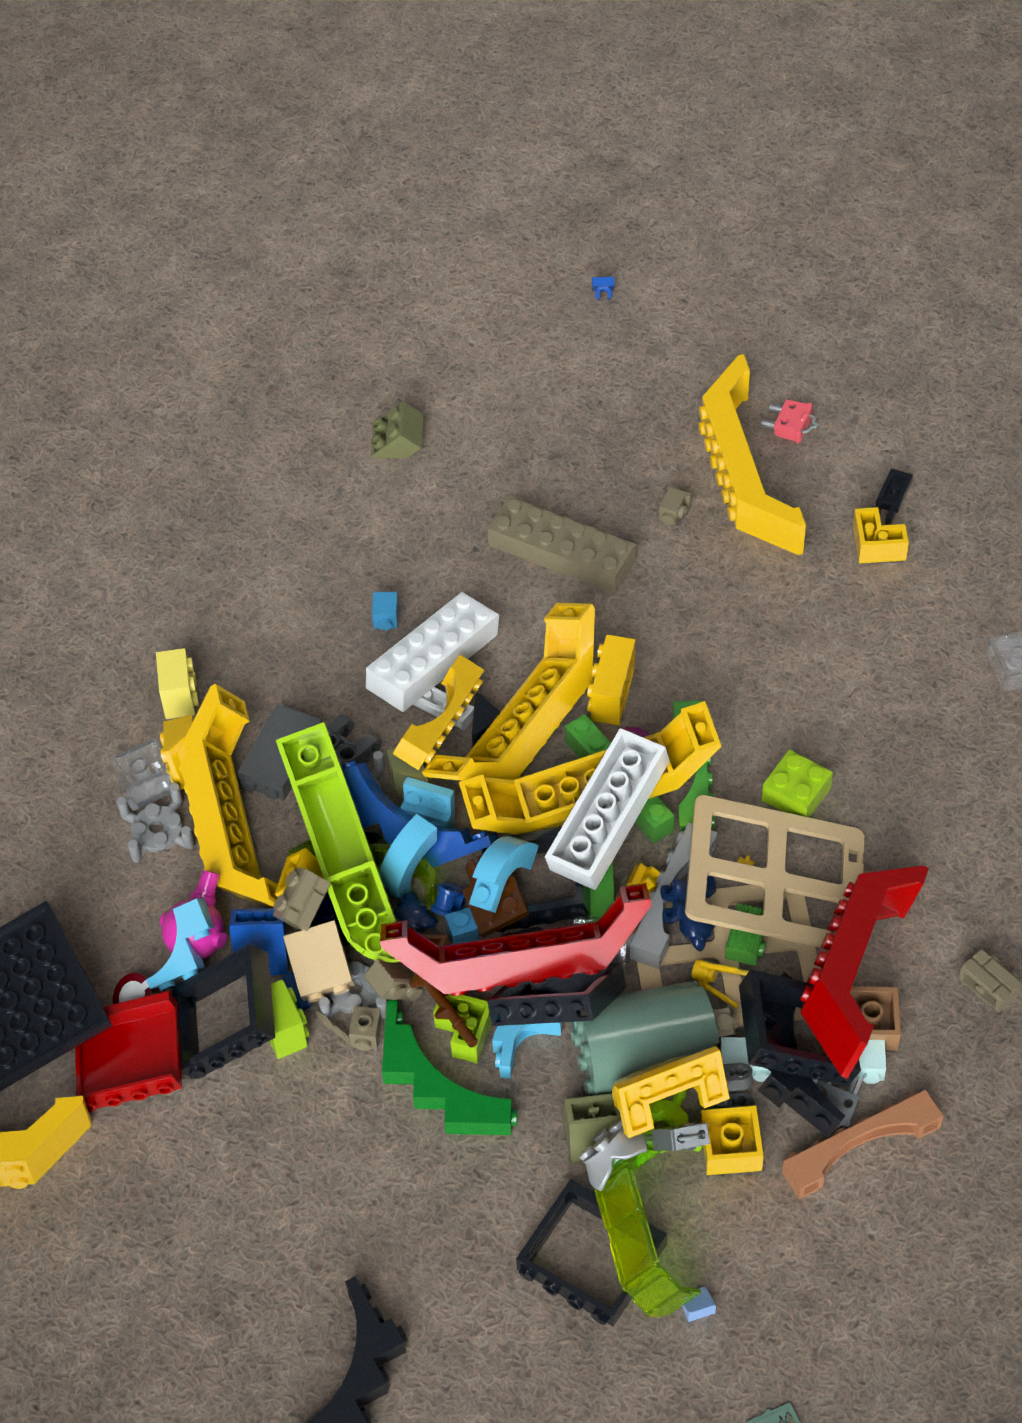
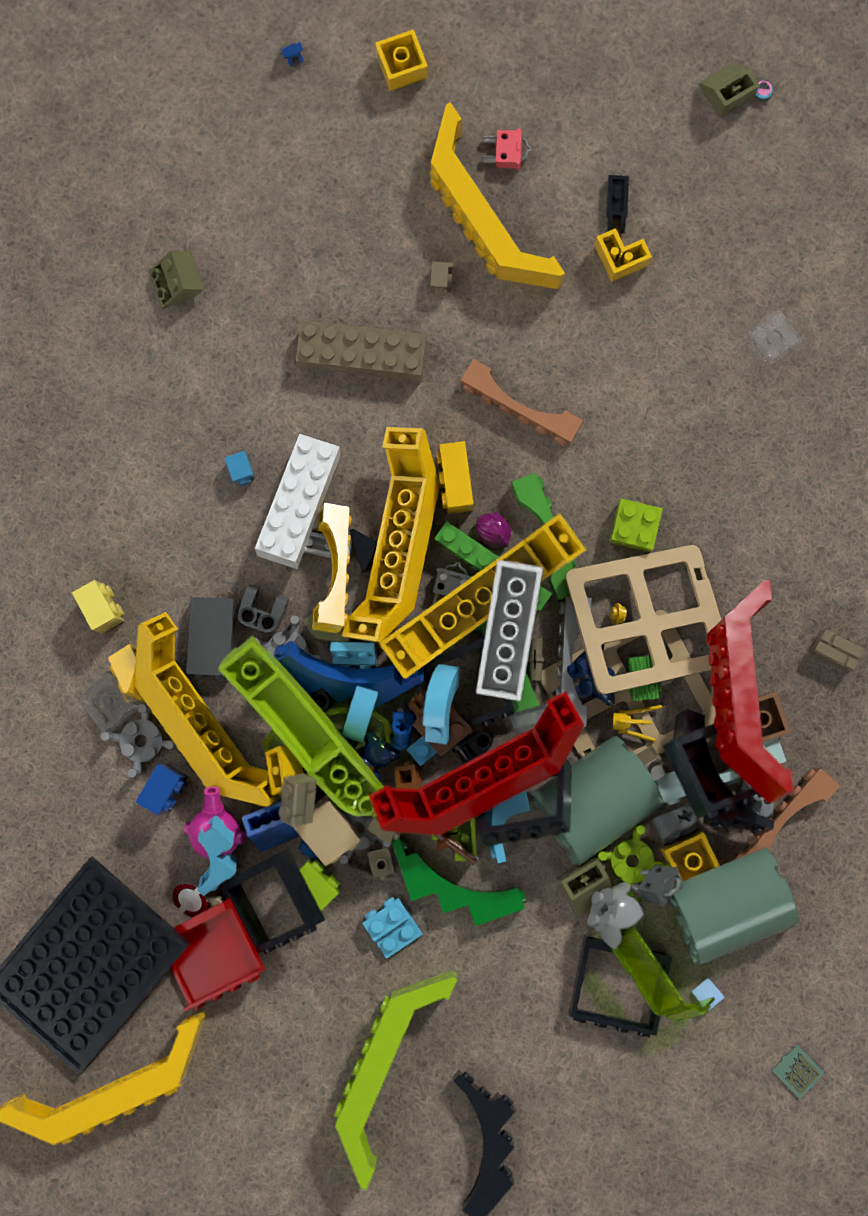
camera: 20 degrees left, 30 degrees up
(157, 871) = (162, 789): none -> blue brick
(267, 1226) = (373, 1067): none -> lime slope
(347, 1100) = (391, 926): none -> medium azure plate
(637, 1090) = (636, 856): yellow windscreen -> none
(644, 874) = (546, 658): yellow tile -> none
(711, 318) = (401, 60): none -> yellow brick
(749, 671) = (560, 426): none -> nougat arch
(762, 1204) = (733, 906): none -> sand green cylinder

